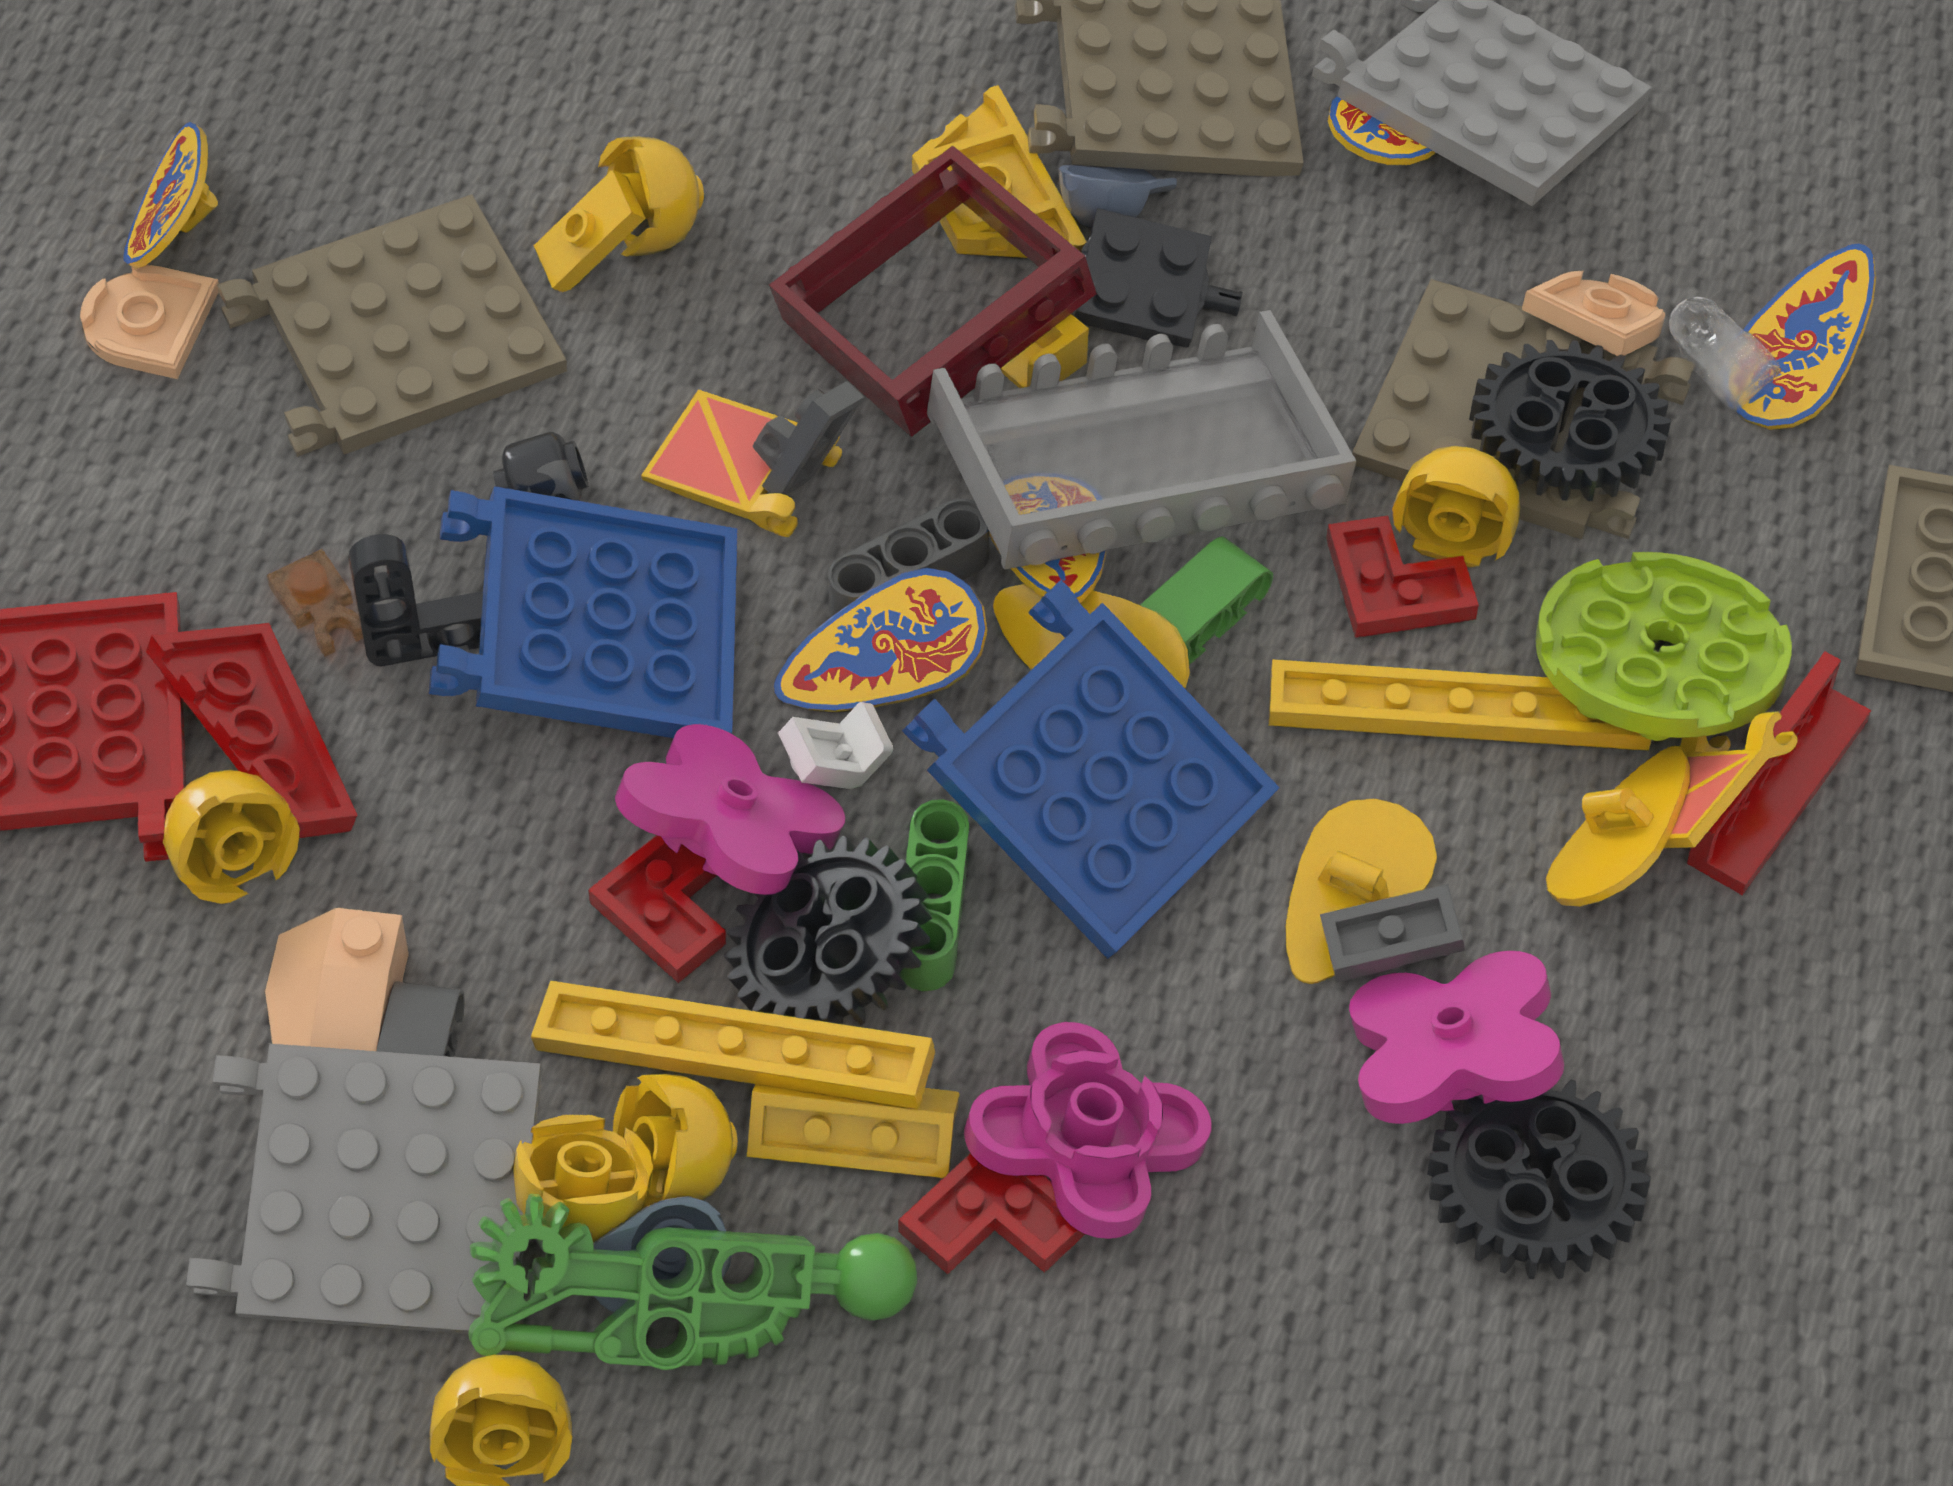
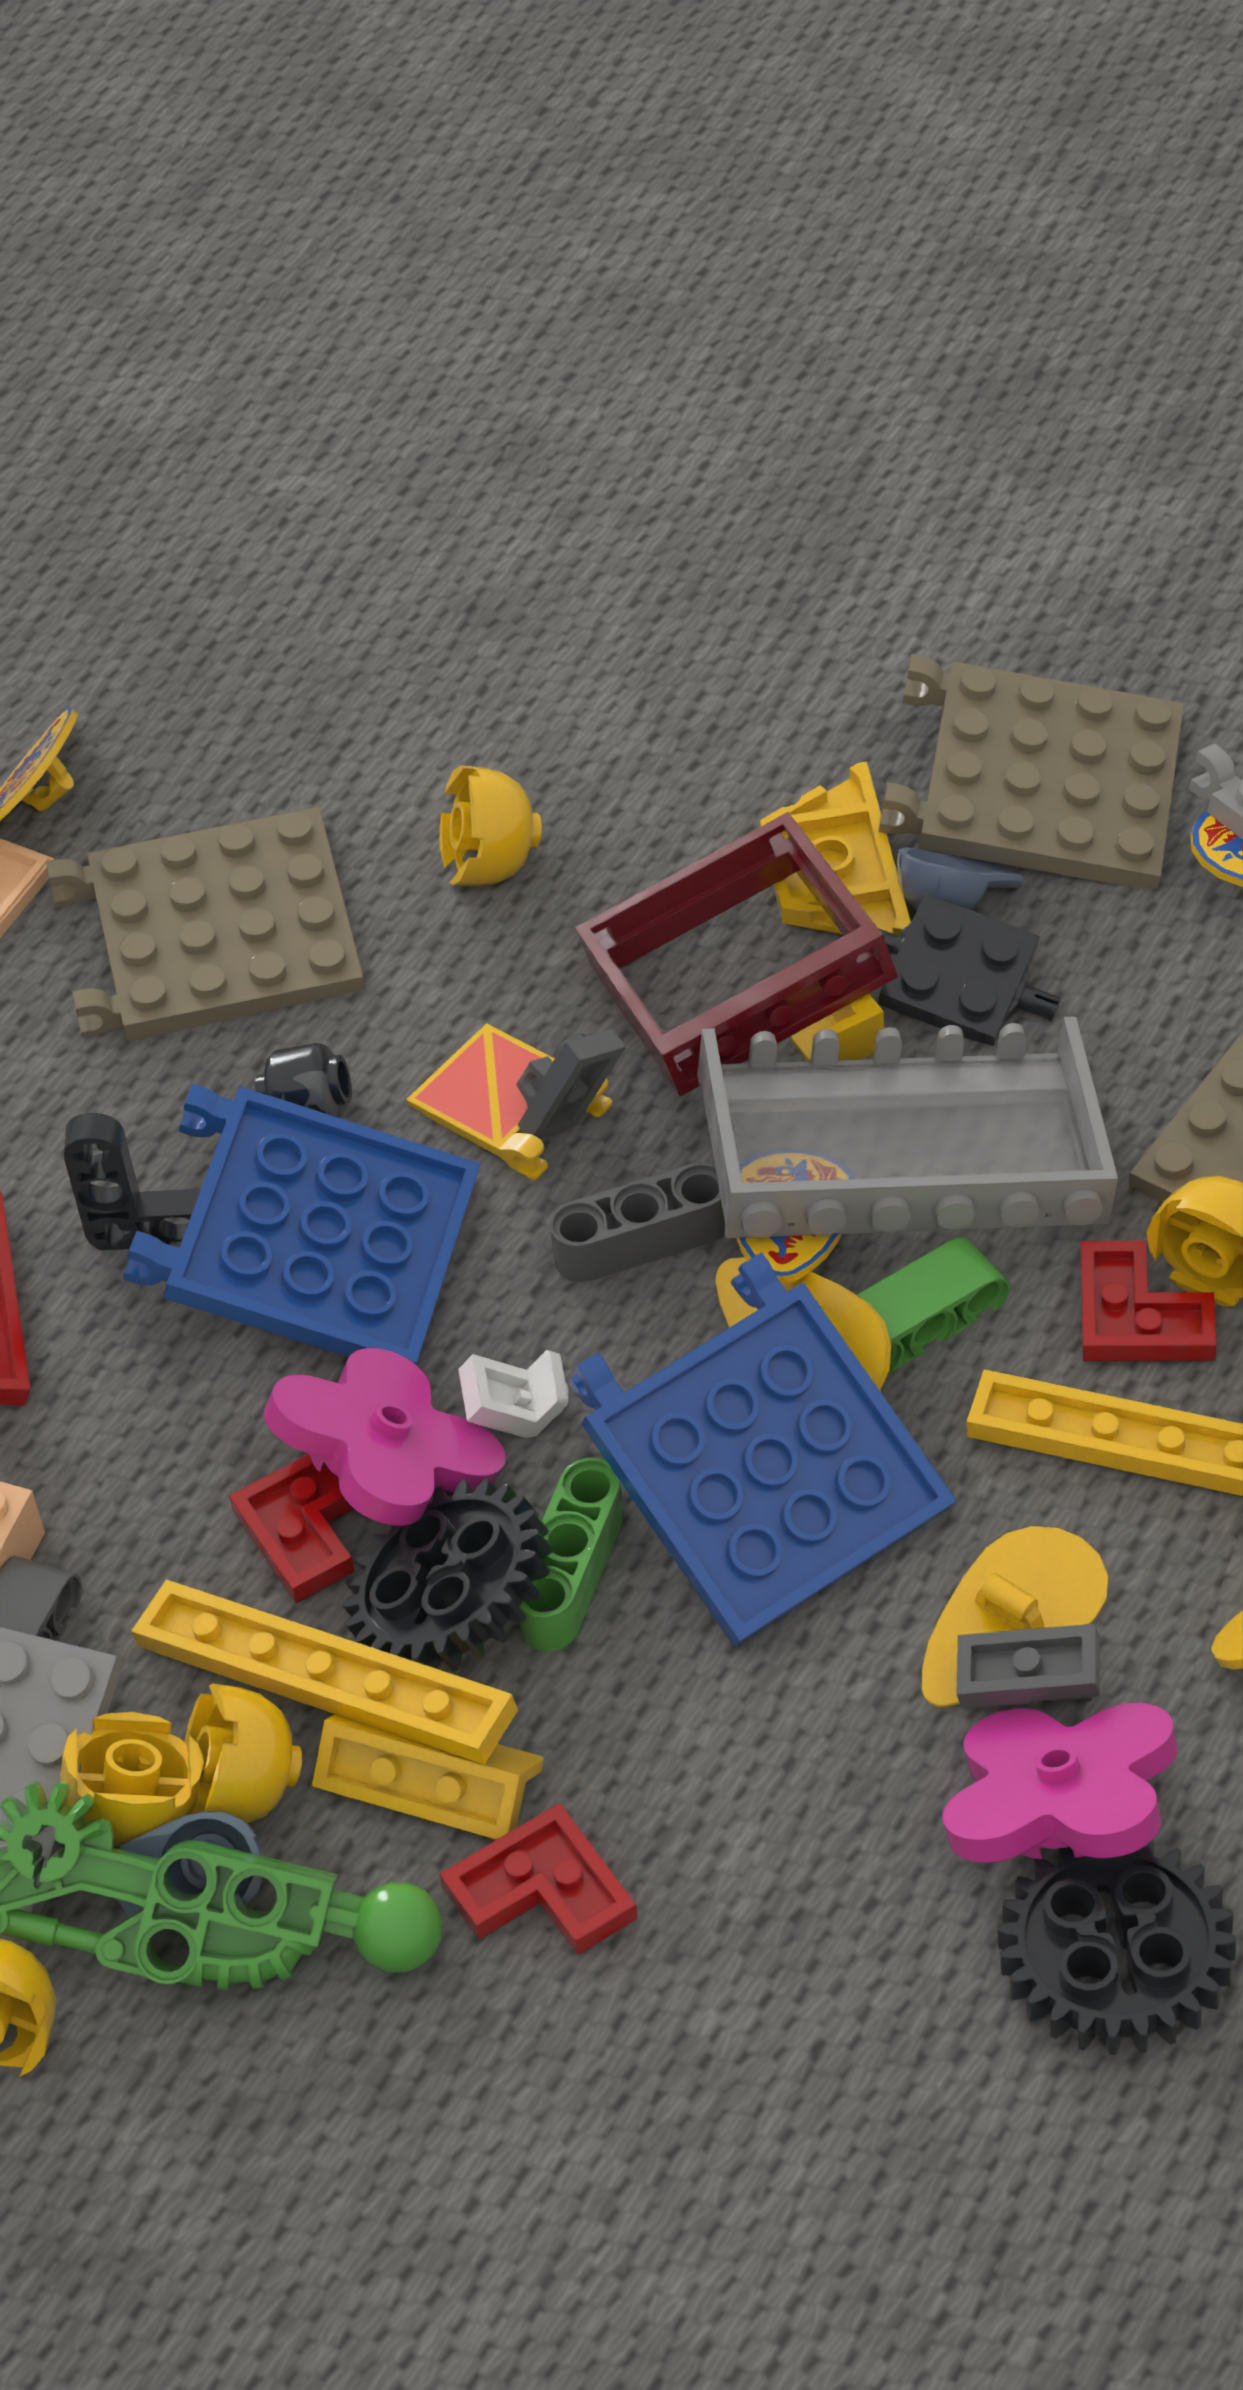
camera: 20 degrees right, 5 degrees down
(317, 595) = (47, 1176): clear orange plate -> none
(589, 231) = (416, 855): yellow plate -> none
(888, 645) = (594, 1298): shield -> none
(1088, 1129) = (658, 1816): dark pink plant -> none

